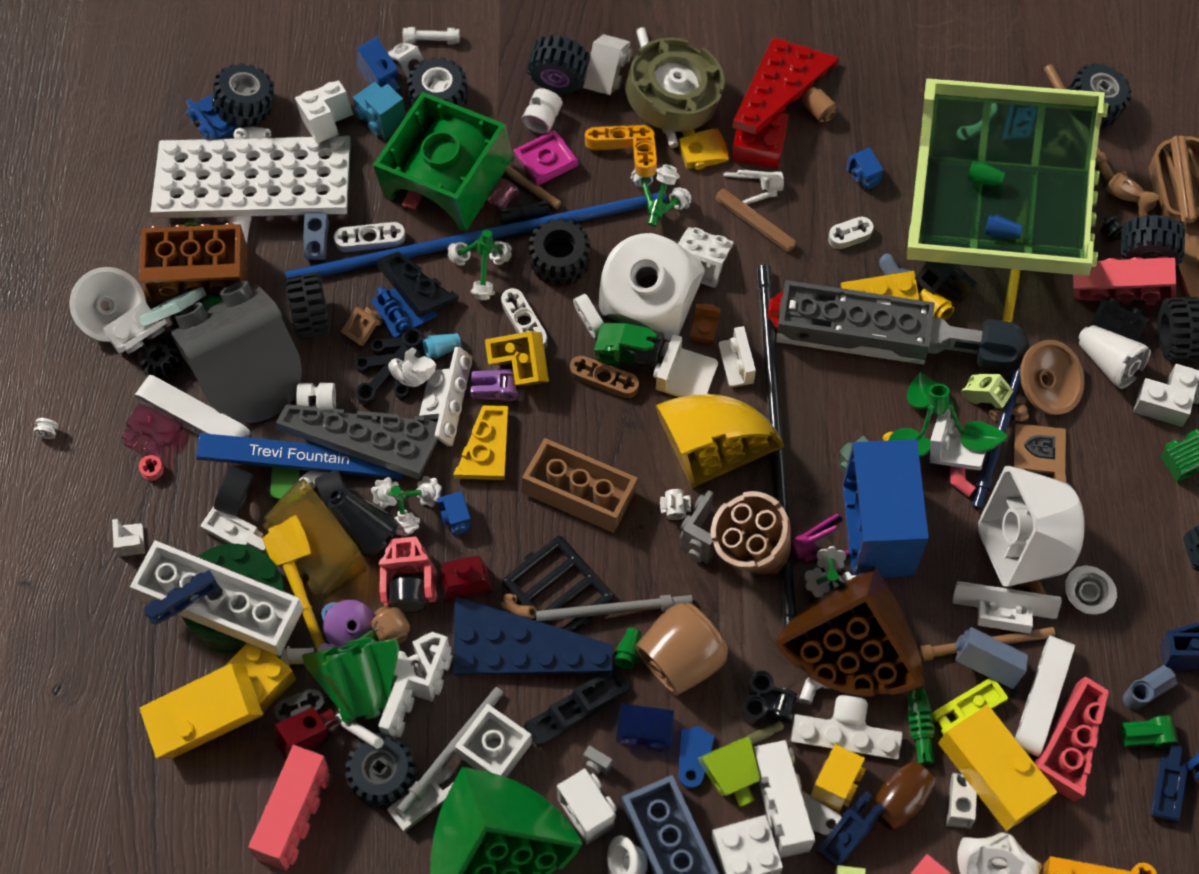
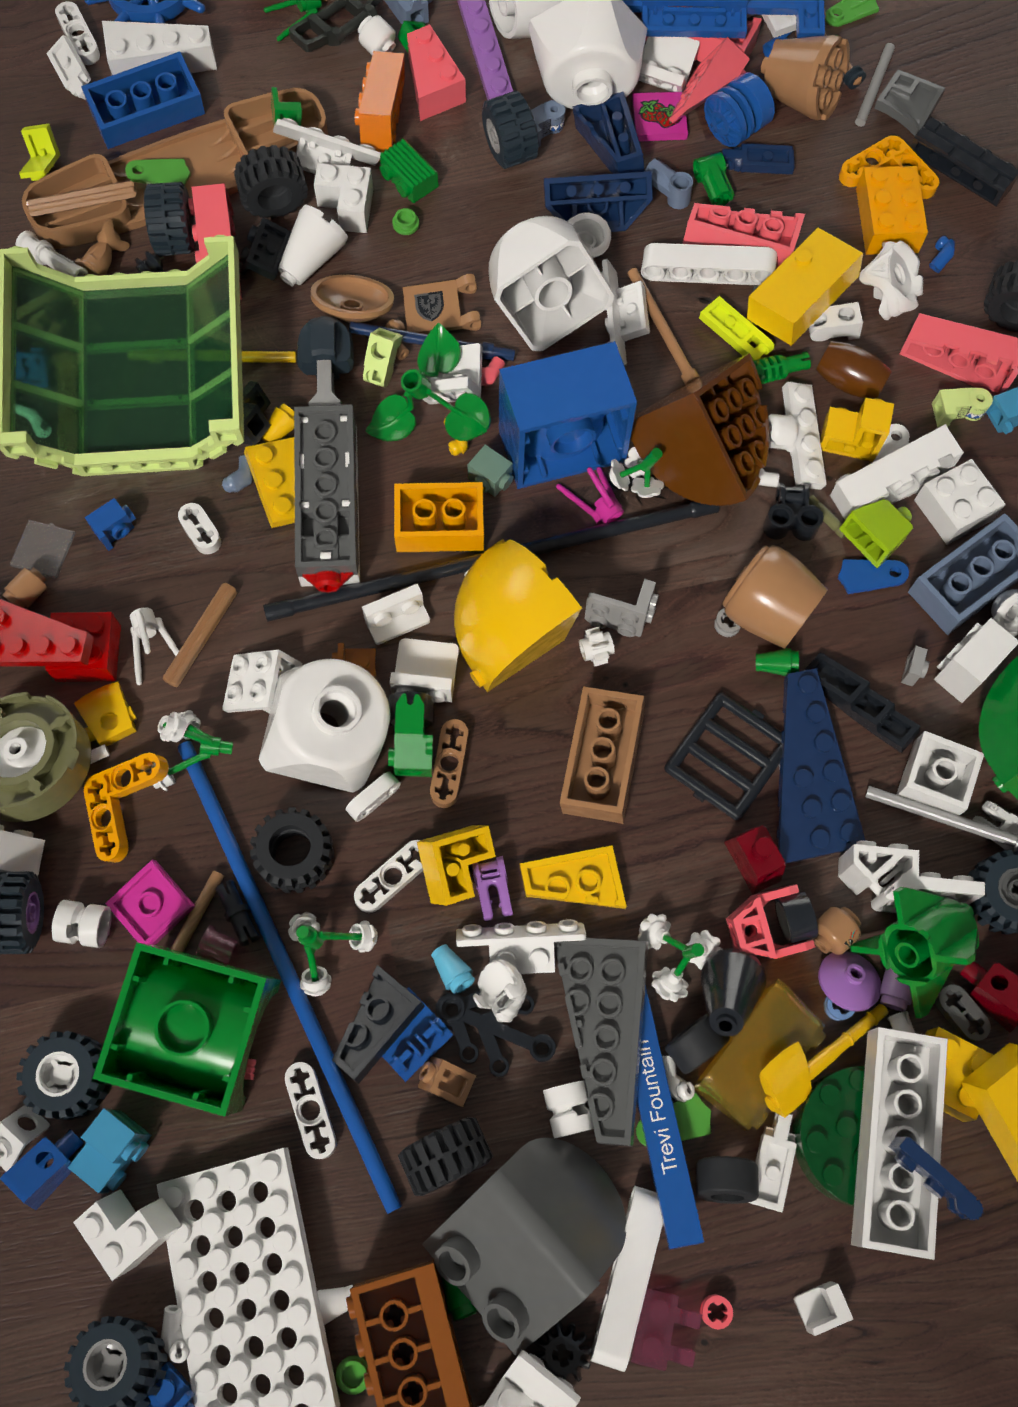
camera: 105 degrees left, 5 degrees up
(172, 306) = (489, 1355): light aqua tile -> none
(315, 236) = (328, 1184): sand blue leg -> none
(361, 732) = (991, 911): white bar -> none
(454, 512) = (674, 891): blue brick -> none
(509, 605) = (767, 800): medium nougat arm -> none
(644, 727) = (861, 626): clear blue brick -> none
(663, 602) = (713, 638): light grey bar -> none
(752, 533) = (650, 529): medium nougat cone -> none
(819, 406) = (438, 517): none -> light orange brick
(850, 831) = (908, 406): dark blue hinge -> none
(856, 123) = (43, 548): none -> clear piece
(985, 174) = (106, 388): green cone -> none
(991, 657) = (685, 312): sand blue brick -> none
(1002, 228) = (177, 362): blue cone -> none
(1135, 619) = (612, 196): none -> dark blue wedge
(1136, 444) = (405, 222): none -> bright green plate
(1137, 150) = (46, 255): none -> white pin

